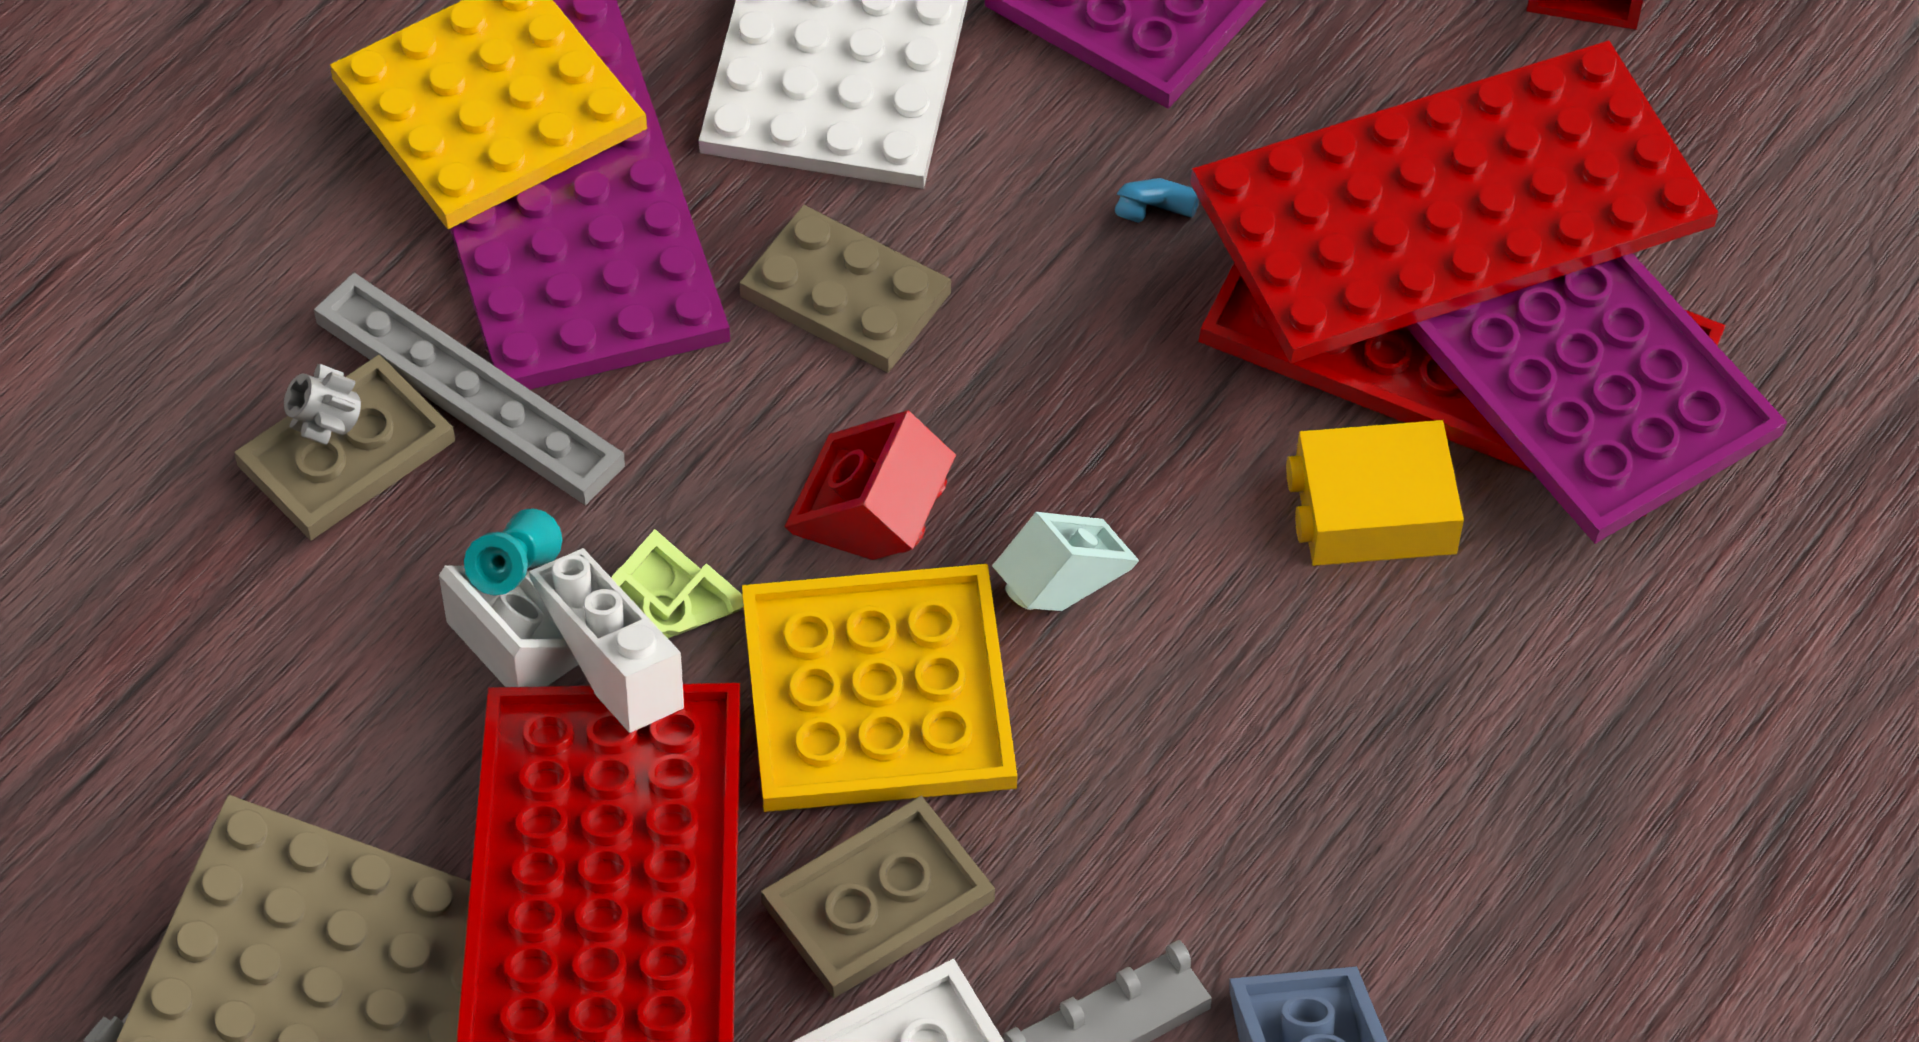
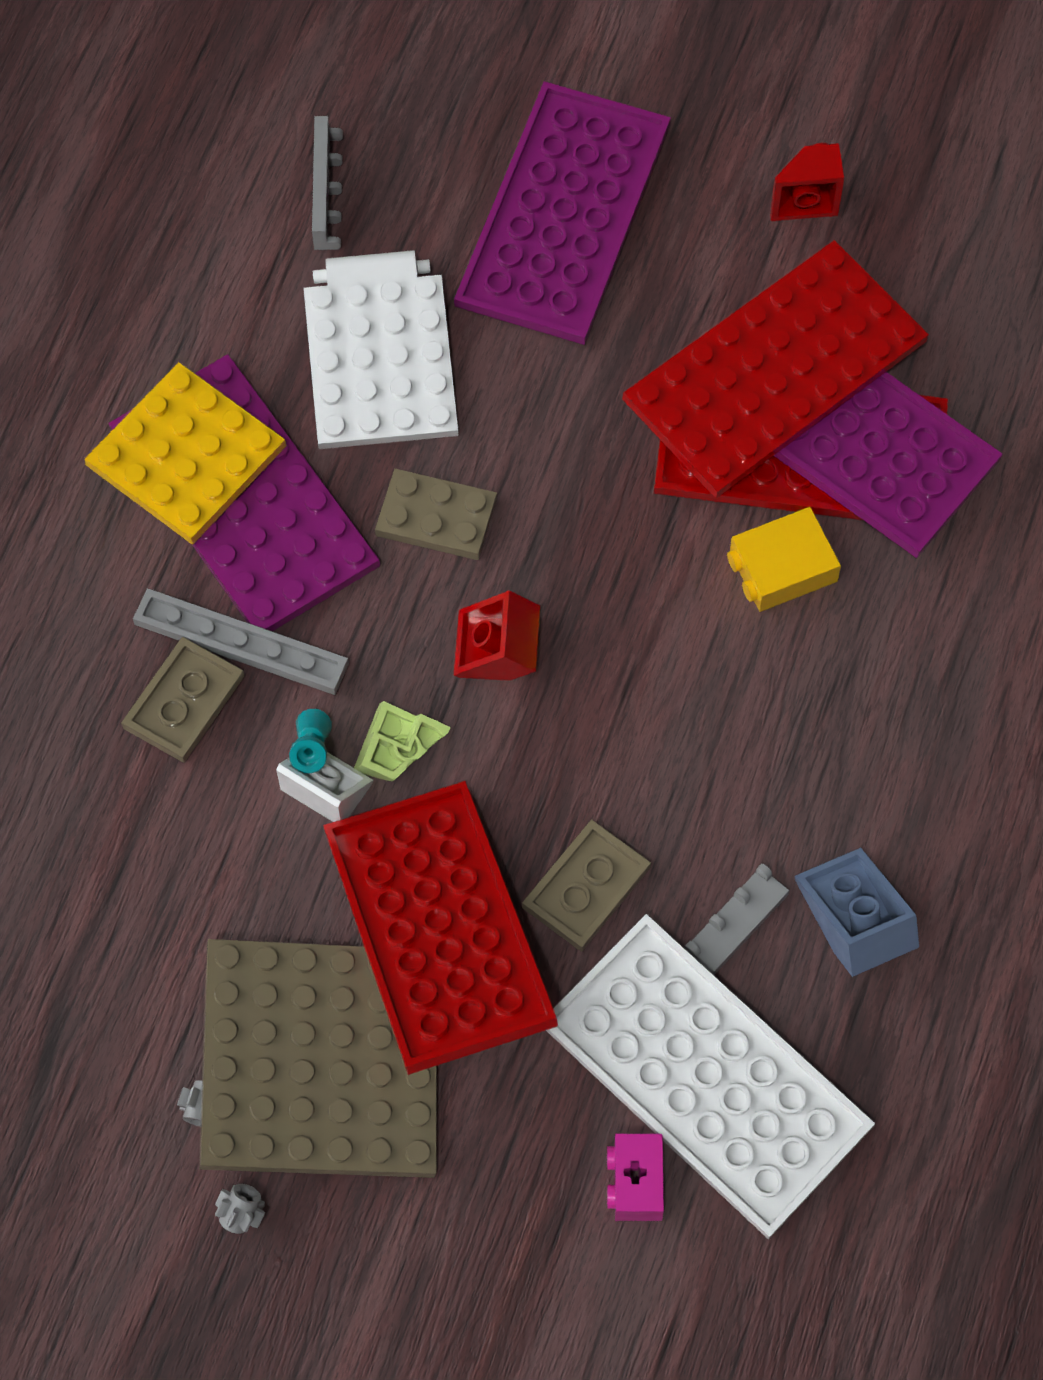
camera: 15 degrees left, 10 degrees up
(322, 404) = (166, 681): light grey gear -> none
(614, 642) = (387, 779): white slope -> none
(877, 687) = (542, 759): yellow plate -> none
(1061, 560) = (621, 653): light aqua slope -> none
(1156, 193) = (596, 402): dark azure arm -> none

